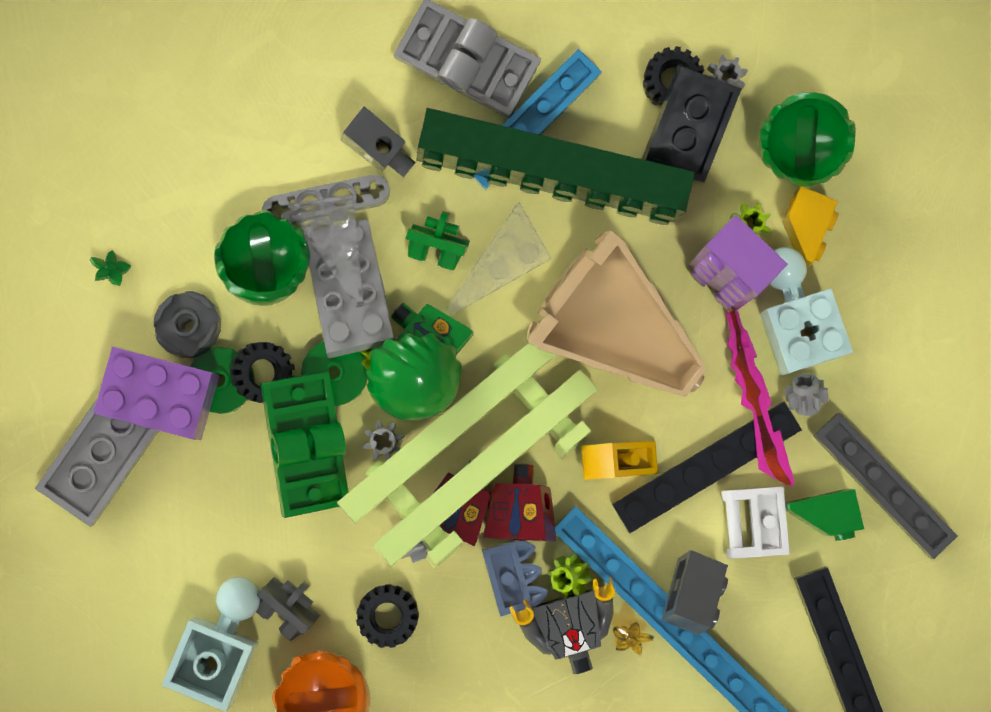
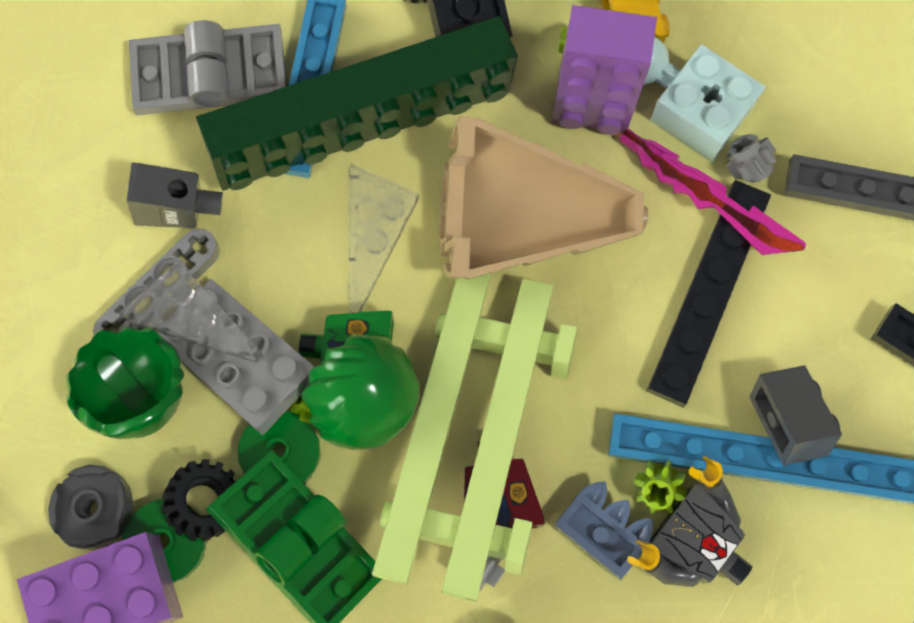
camera: 35 degrees left, 10 degrees down
(382, 432) = (367, 477): light grey gear -> none
(423, 238) = (279, 262): green hips -> none
(521, 509) = (564, 454): dark red torso -> none
(619, 459) = (622, 340): yellow slope -> none
(631, 638) = (765, 507): clear yellow plant -> none
(766, 519) = (805, 301): white plate -> none
(829, 513) = (857, 252): green slope -> none

